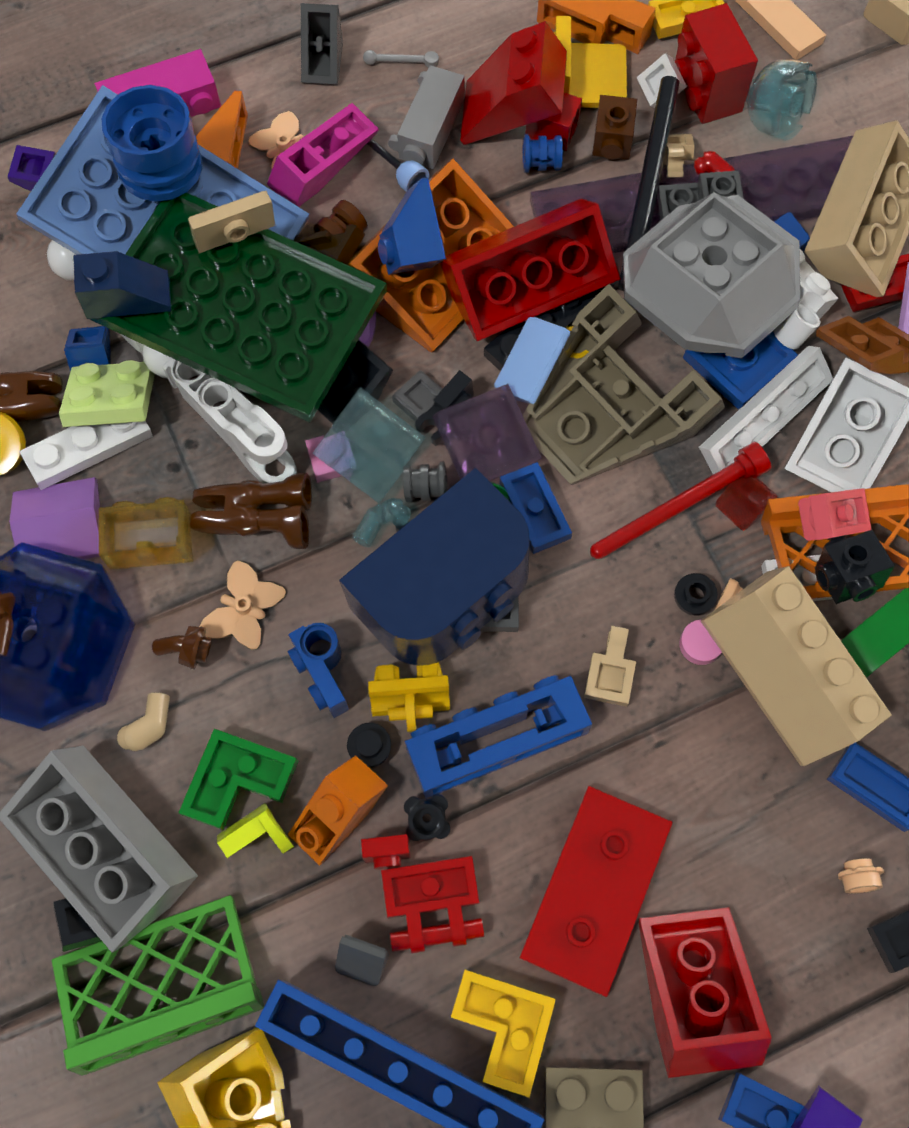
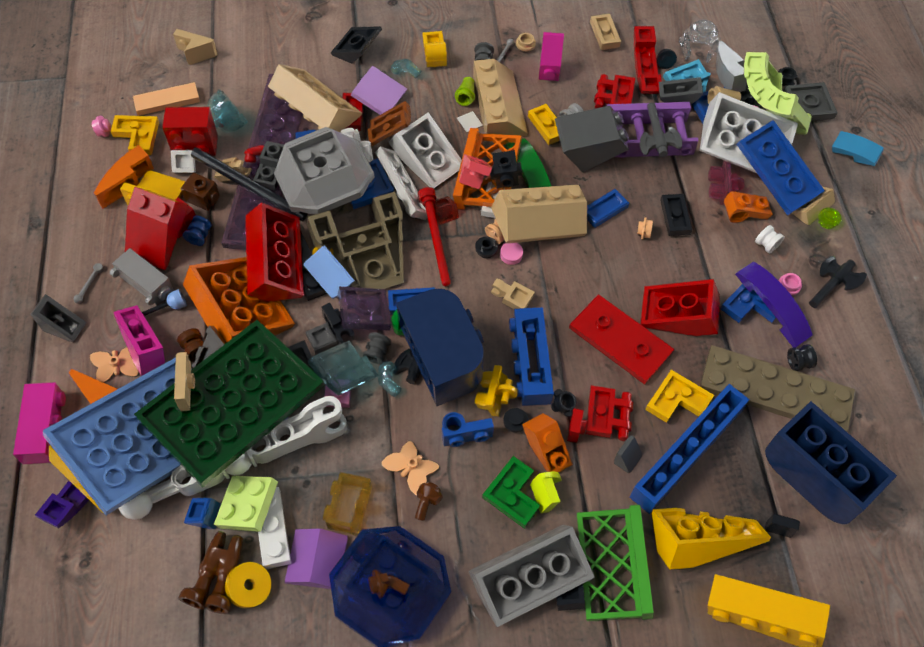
camera: 75 degrees left, 10 degrees down
(119, 285) = (197, 455): dark blue slope -> none
(147, 728) = (468, 534): tan arm -> none
(152, 142) = (109, 406): blue wheel -> none
(241, 511) = (357, 449): reddish brown piece -> none
(412, 234) = (228, 297): blue slope -> none

